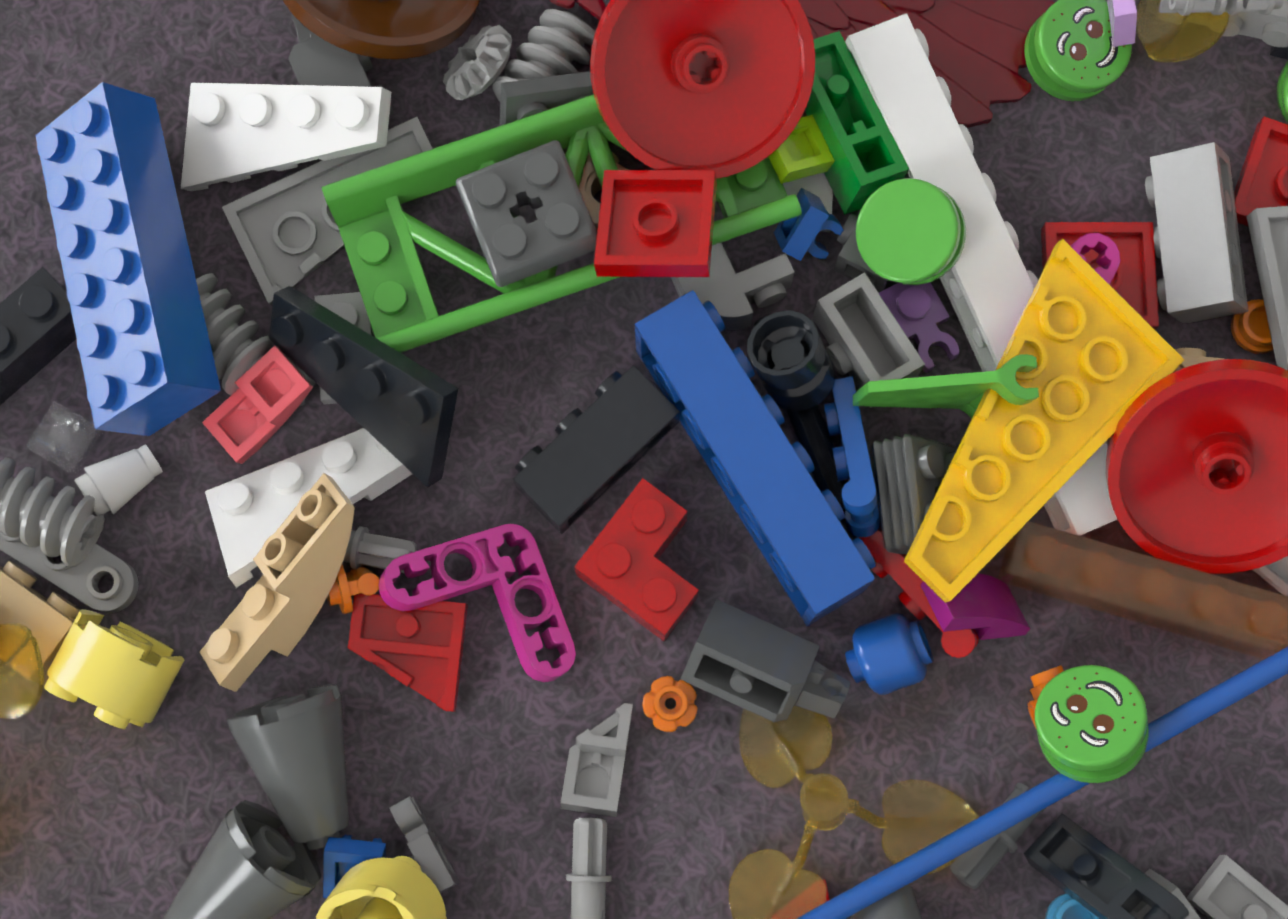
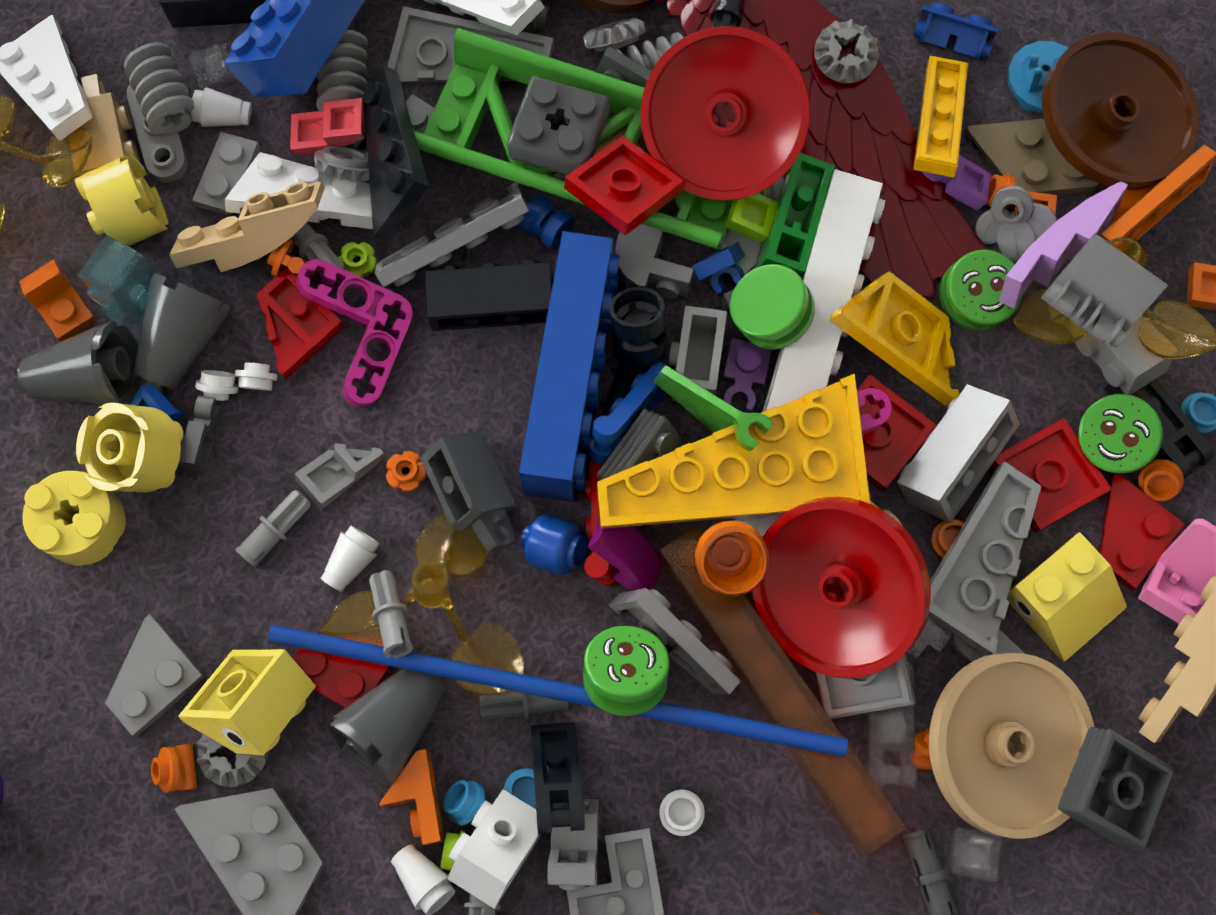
camera: 40 degrees right, 5 degrees down
(127, 833) = (57, 301): none -> orange slope
(187, 544) = (224, 169): none -> light grey plate
(194, 757) = (118, 280): none -> clear light blue brick
(315, 431) = (343, 163): none -> light grey gear
(393, 778) = (217, 384): none -> white plate
(418, 508) = (365, 252): none -> lime plate
(426, 736) = (256, 377): none -> white plate
(504, 413) = (453, 234): none -> light grey wing
(570, 322) = (546, 221): none -> blue wheel
(626, 565) = (451, 368): red brick -> none
(695, 841) = (349, 558): none -> white cone
(805, 866) = (390, 615): none -> light grey axle
(1044, 153) = (902, 332): none -> yellow wing
(1059, 644) = (688, 651): none -> light grey wing
(1104, 526) = (731, 558): none -> orange helmet
(1238, 812) = (681, 812): none -> white plate

